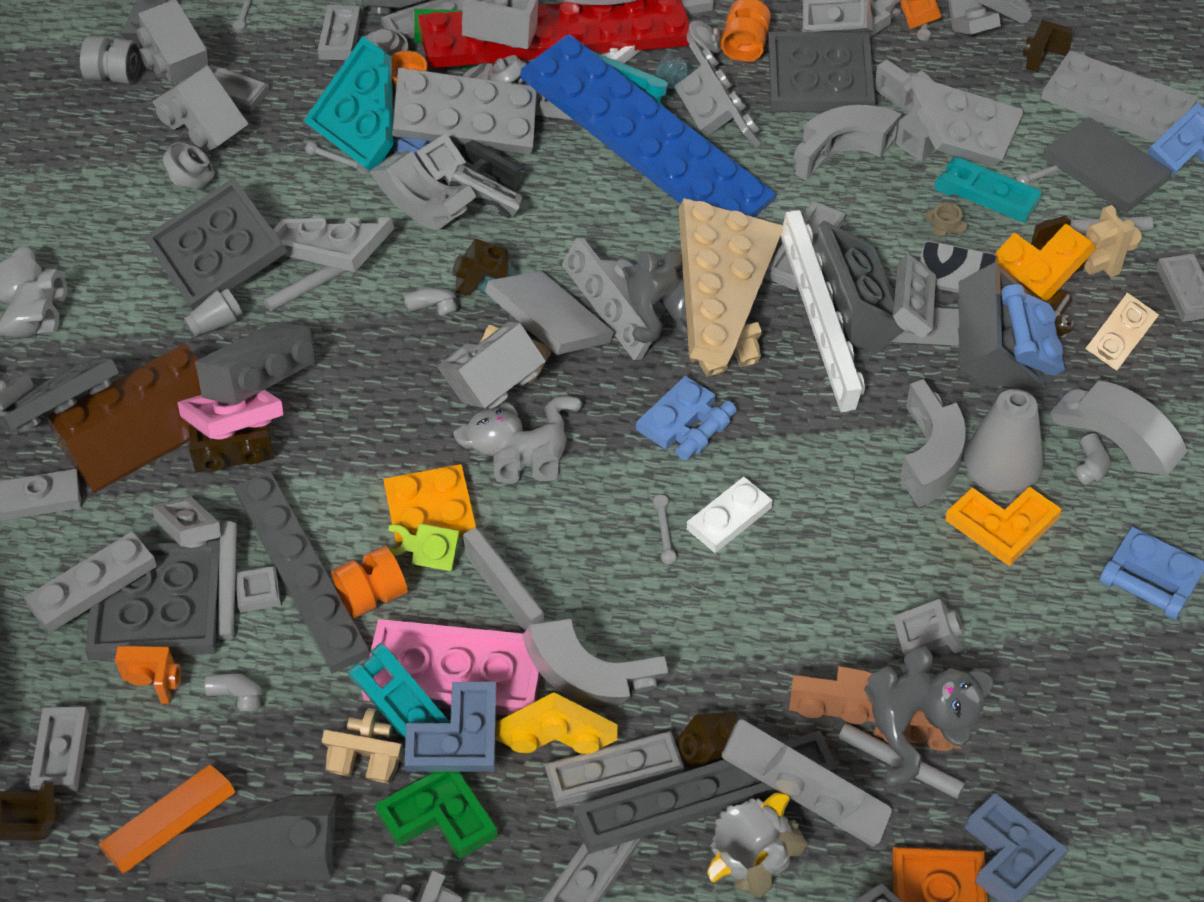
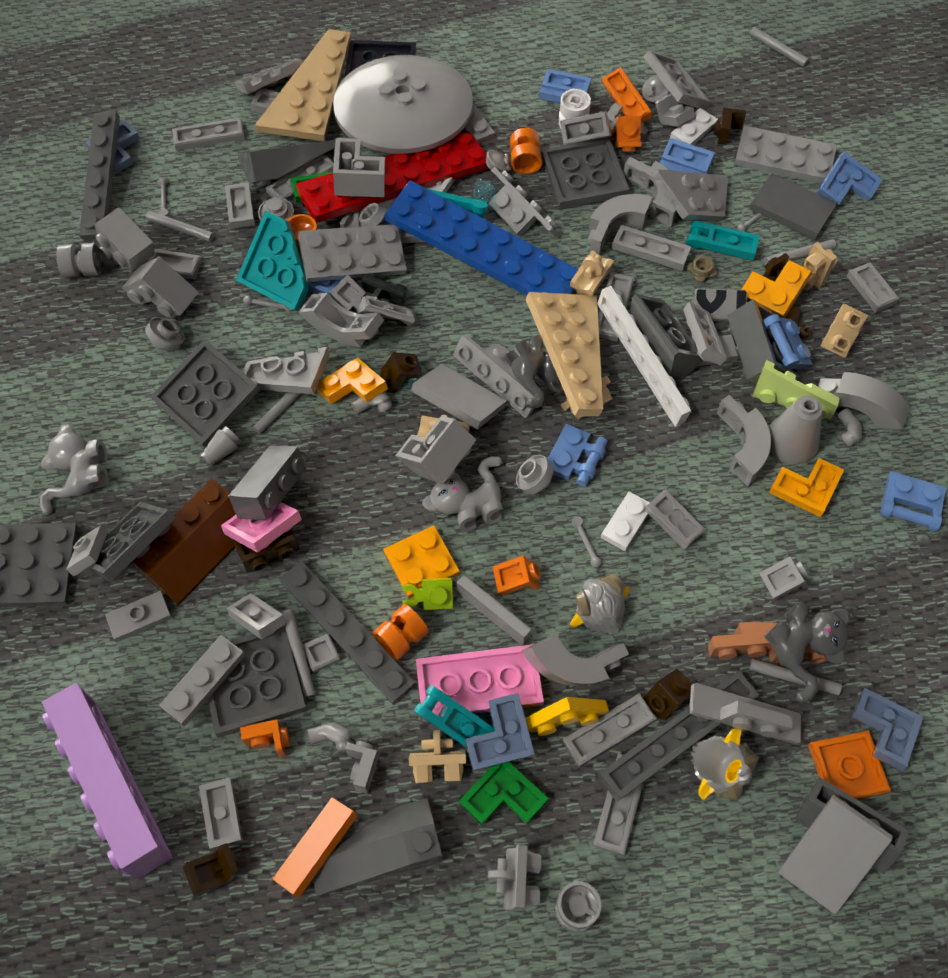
camera: 15 degrees left, 10 degrees up
(254, 45) = (180, 226): none -> light grey bar
(266, 736) = (362, 771): none -> light grey bracket
(417, 264) = (352, 377): none -> light orange plate
(552, 546) = (516, 575): none -> orange bracket
(619, 428) = (534, 474): none -> light grey plate
(654, 607) = (601, 604): none -> light grey hair
(785, 194) = (591, 274): none -> tan hips
(796, 523) = (674, 519): none -> light grey plate
(882, 180) = (651, 247): none -> light grey plate
(898, 31) = (628, 132): none -> orange bracket
(972, 75) = (686, 157): none -> medium blue plate
(992, 376) = (785, 390): none -> yellowish green wing
(995, 44) = (695, 128): none -> white plate

